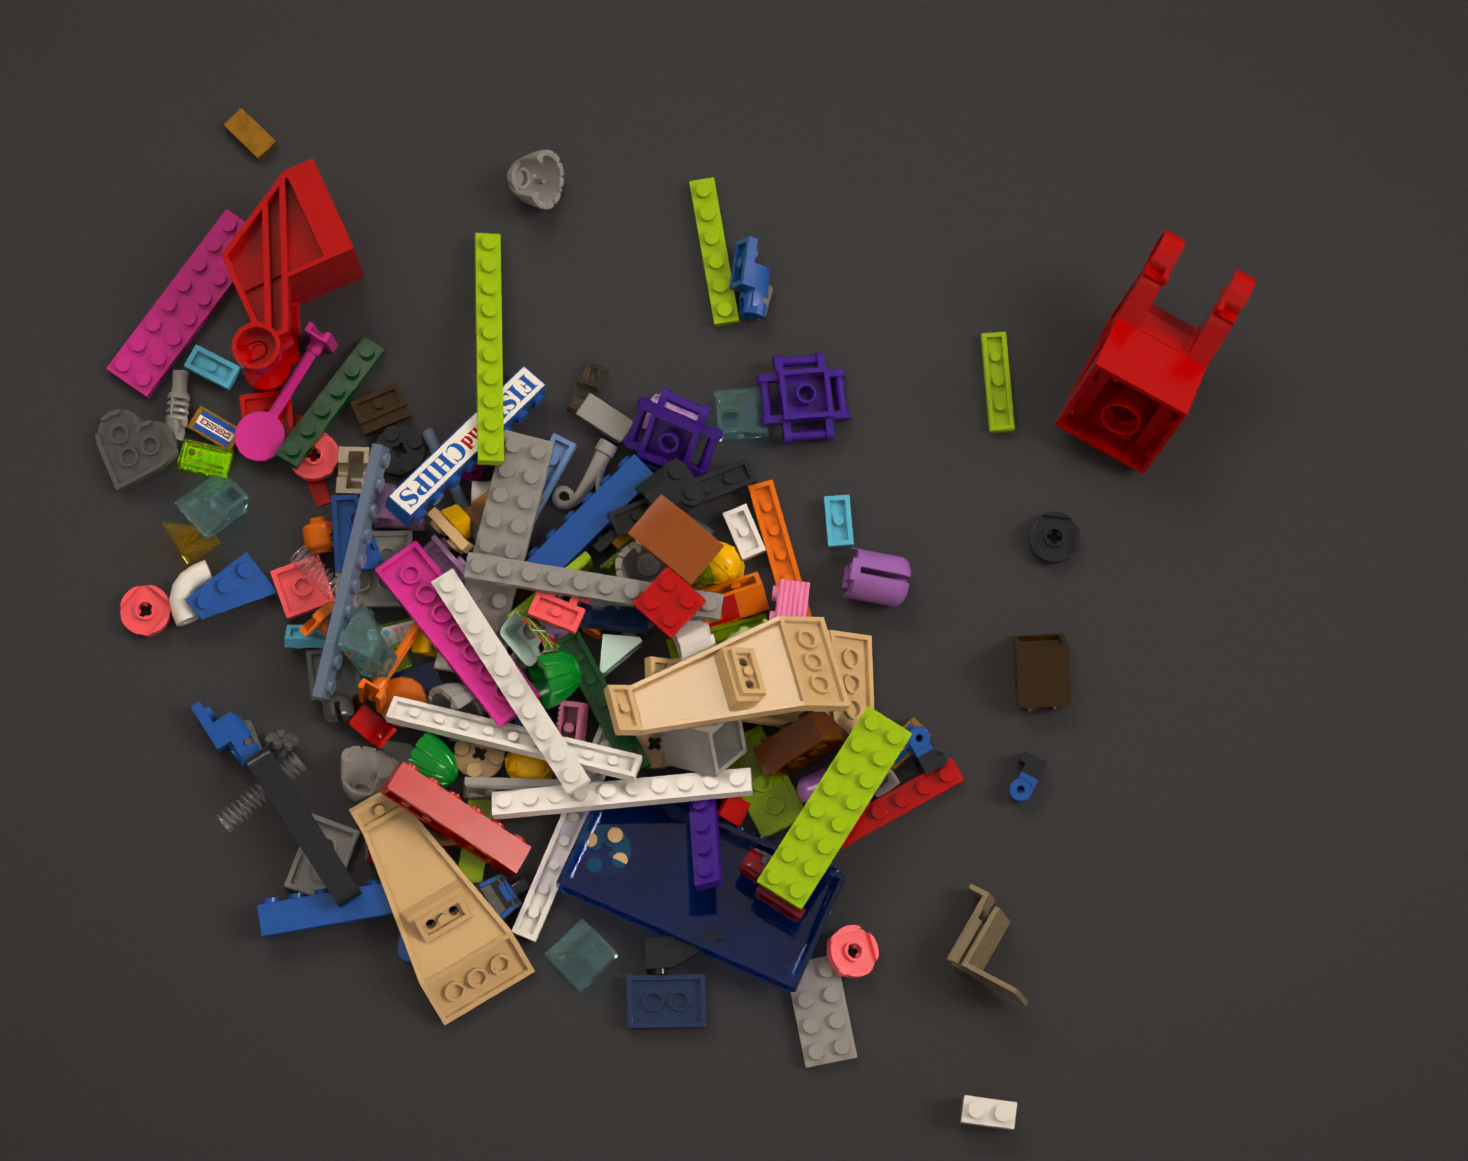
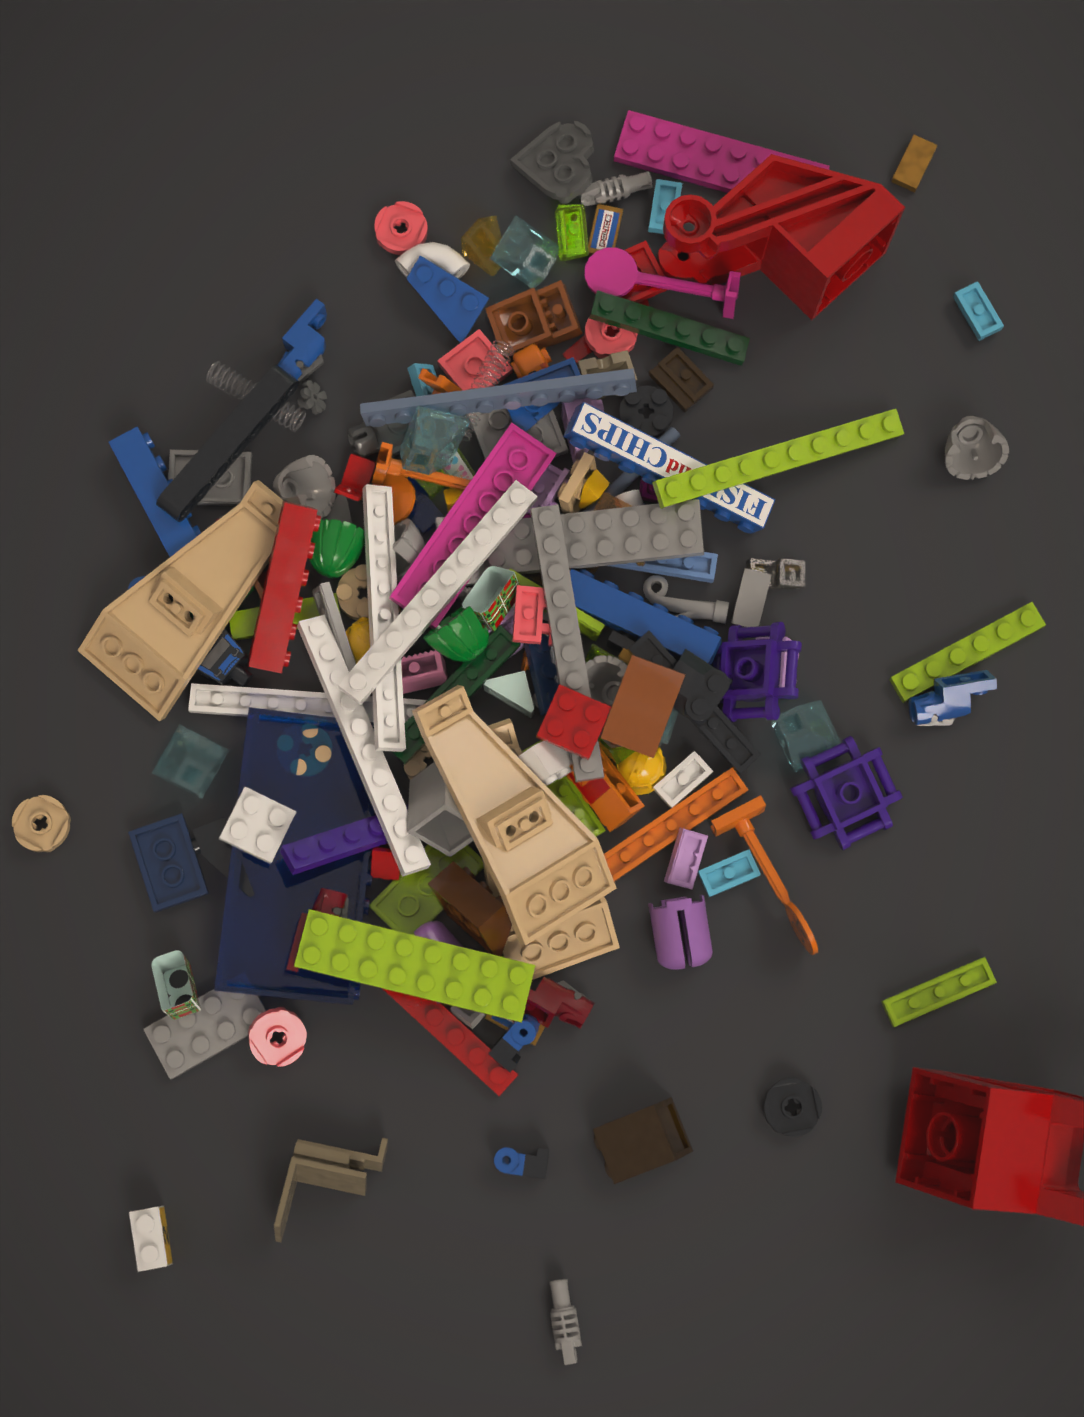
camera: 65 degrees right, 0 degrees up
(277, 519) = (535, 318): none -> dark orange slope
(410, 129) = (978, 311): none -> medium azure plate
(577, 1104) = (36, 808): none -> tan plate
(664, 906) = (257, 825): none -> white plate
(757, 1017) = (169, 963): none -> light aqua piece
(790, 598) = (624, 850): bright pink brick -> none
(796, 494) = (740, 819): none -> orange piece
(814, 553) = (685, 858): none -> lavender plate
(902, 698) = (558, 1000): none -> dark red plate
(1168, 786) = (564, 1321): none -> light grey hinge

